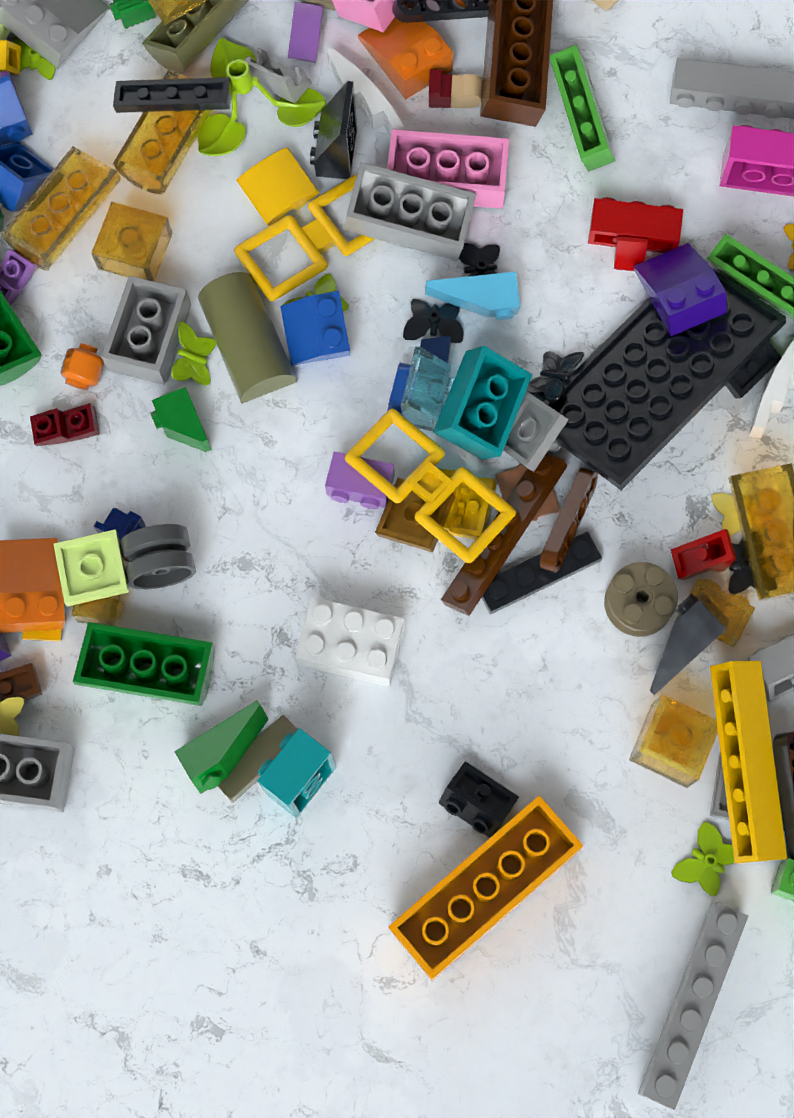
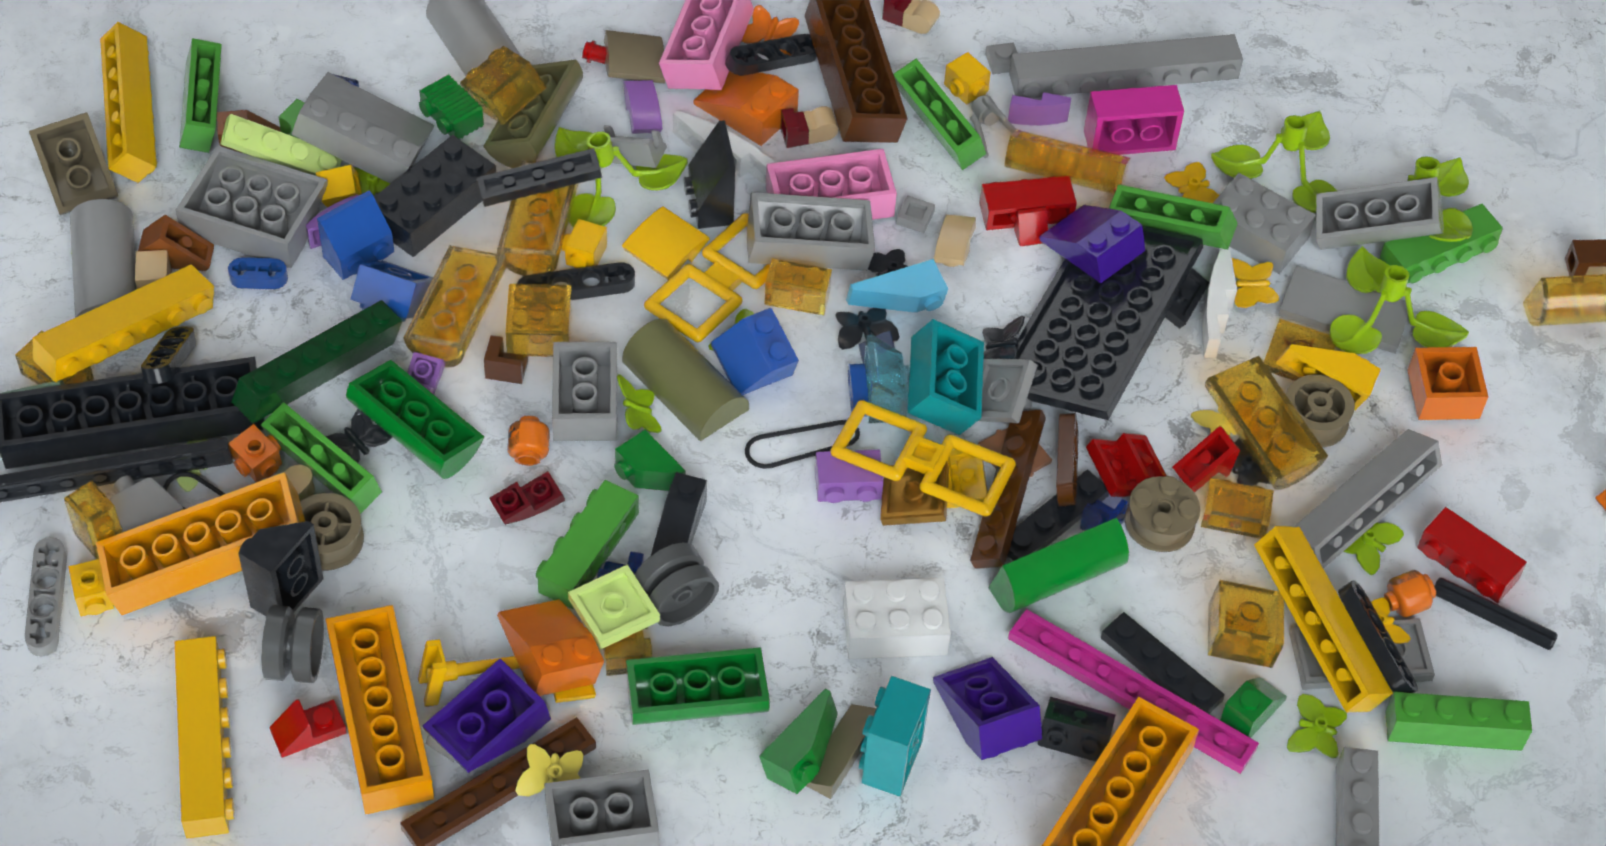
camera: 25 degrees left, 20 degrees down
(76, 85) = (433, 194): none -> black brick
(89, 279) = (503, 365): none -> reddish brown panel
(100, 486) = (588, 542): none -> bright green brick
(184, 204) = (576, 277): none -> black beam
(188, 486) = (681, 511): none -> black slope
(201, 173) = (585, 244): none -> yellow brick
(327, 415) = (791, 431): none -> black piece
(381, 266) = (798, 286): none -> clear yellow brick
(404, 756) = (989, 708): none -> dark purple slope
(521, 635) = (1060, 566): none -> green brick
(523, 212) = (915, 214): none -> light grey plate
(545, 776) = (1125, 686): none -> dark pink plate
(549, 249) = (954, 240): none -> tan slope
(583, 588) = (1100, 513): none -> clear blue panel
(583, 756) = (1160, 663): none -> black plate
(626, 72) = (967, 78): none -> yellow brick
(628, 535) = (1124, 462): none -> red slope
(634, 116) = (987, 113): none -> light grey plant
(653, 824) = (1252, 706): none -> green slope
(668, 52) = (1000, 57): none -> light grey plate
(690, 189) = (1059, 158): none -> clear yellow brick
(694, 127) = (1047, 111): none -> medium lavender slope
(694, 629) = (1223, 519): black slope -> none

